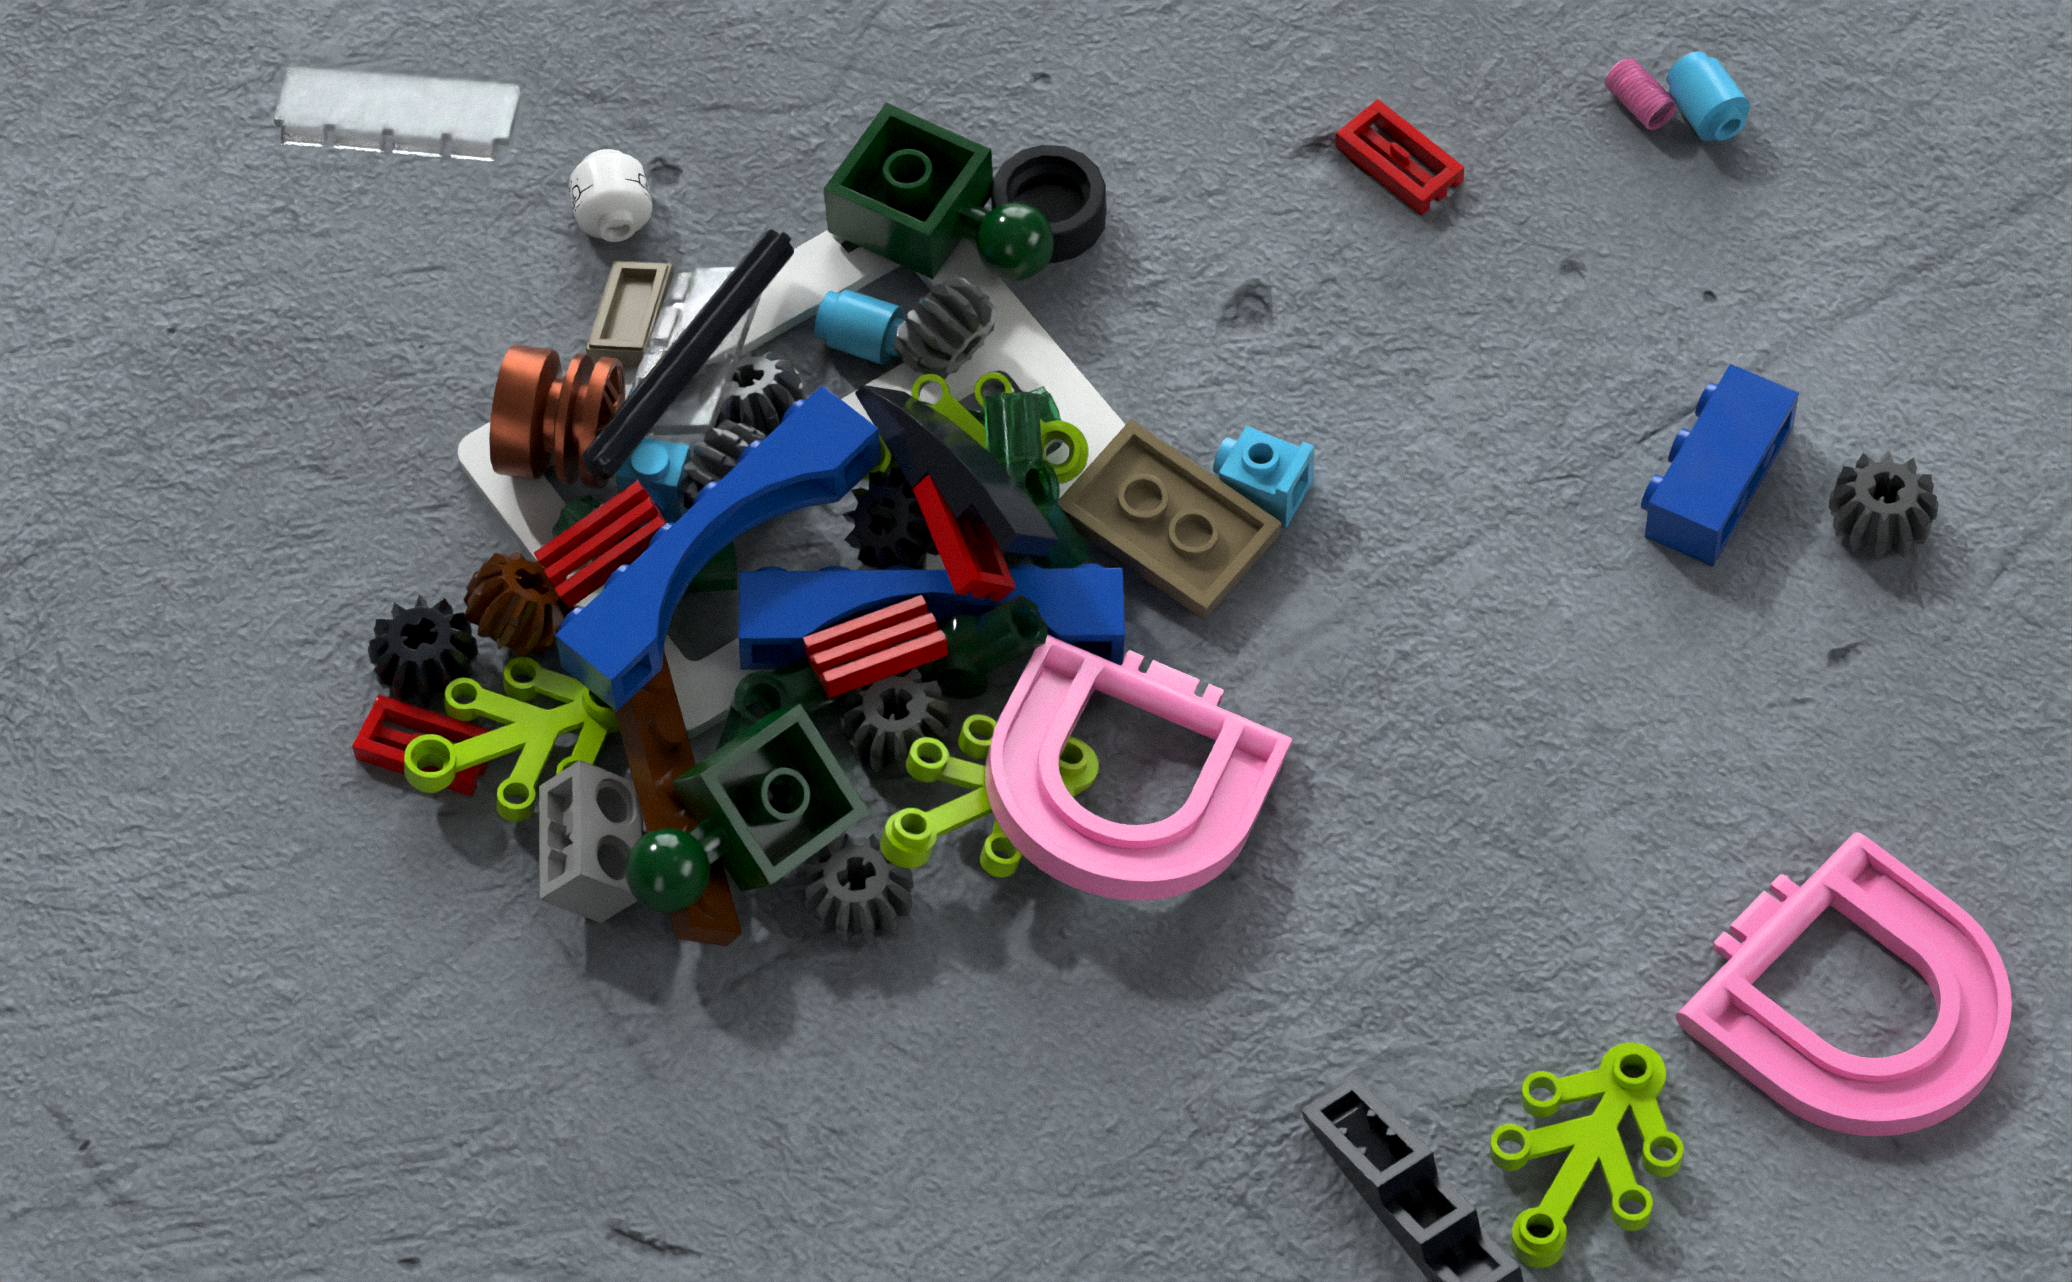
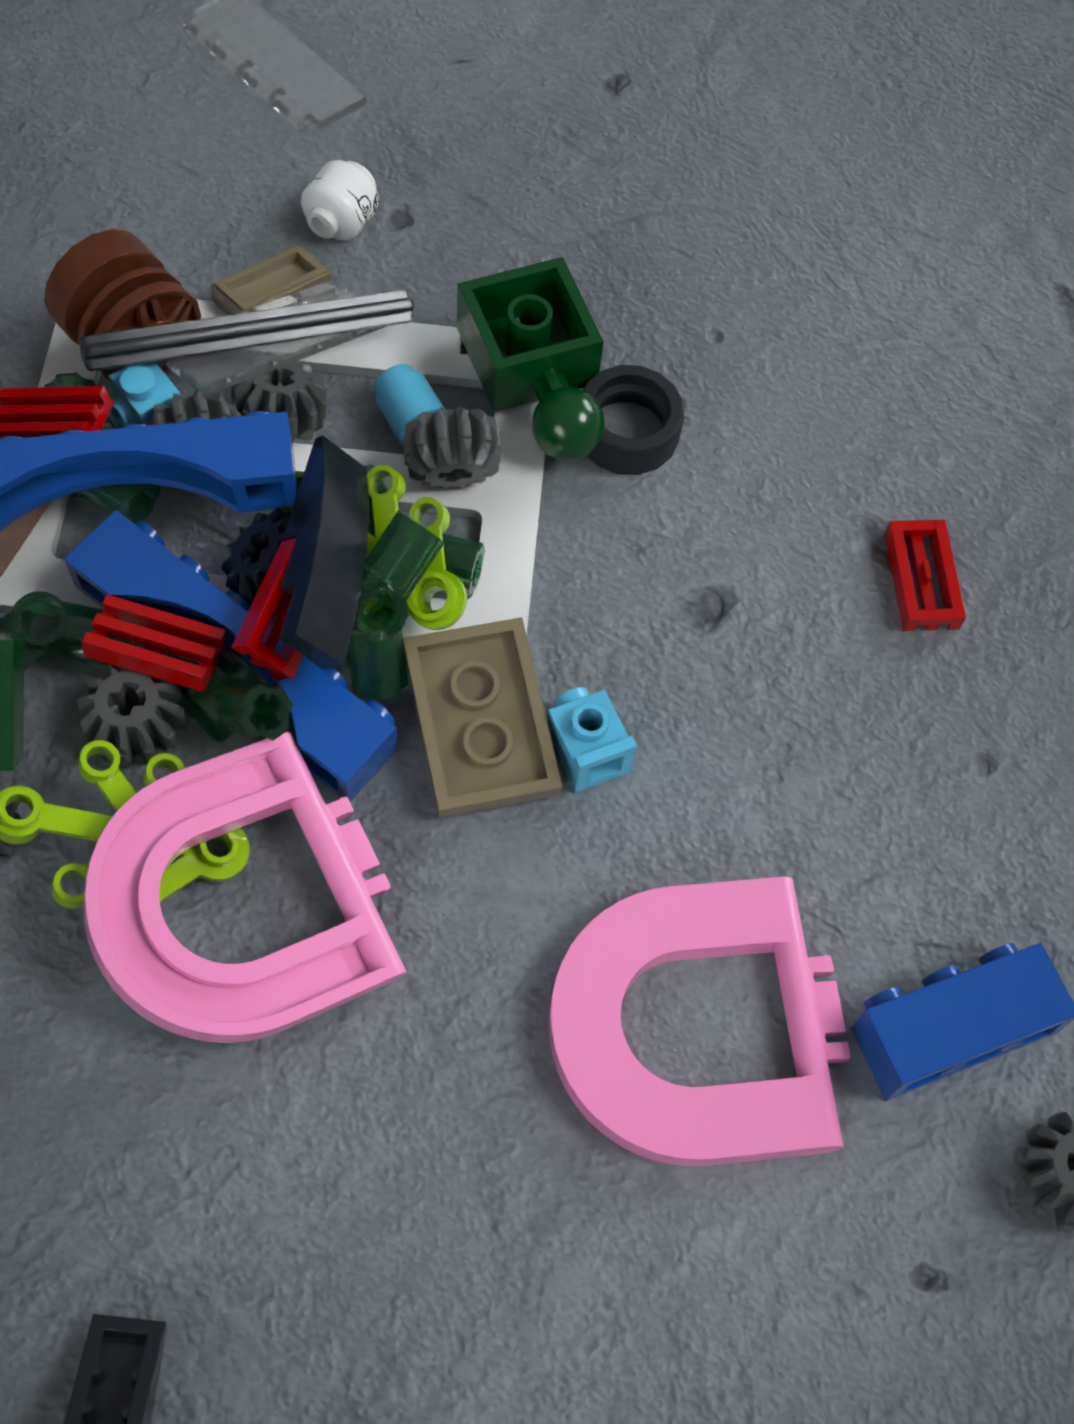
camera: 30 degrees right, 5 degrees up
(1545, 698) = (705, 1122): none -> bright pink piece

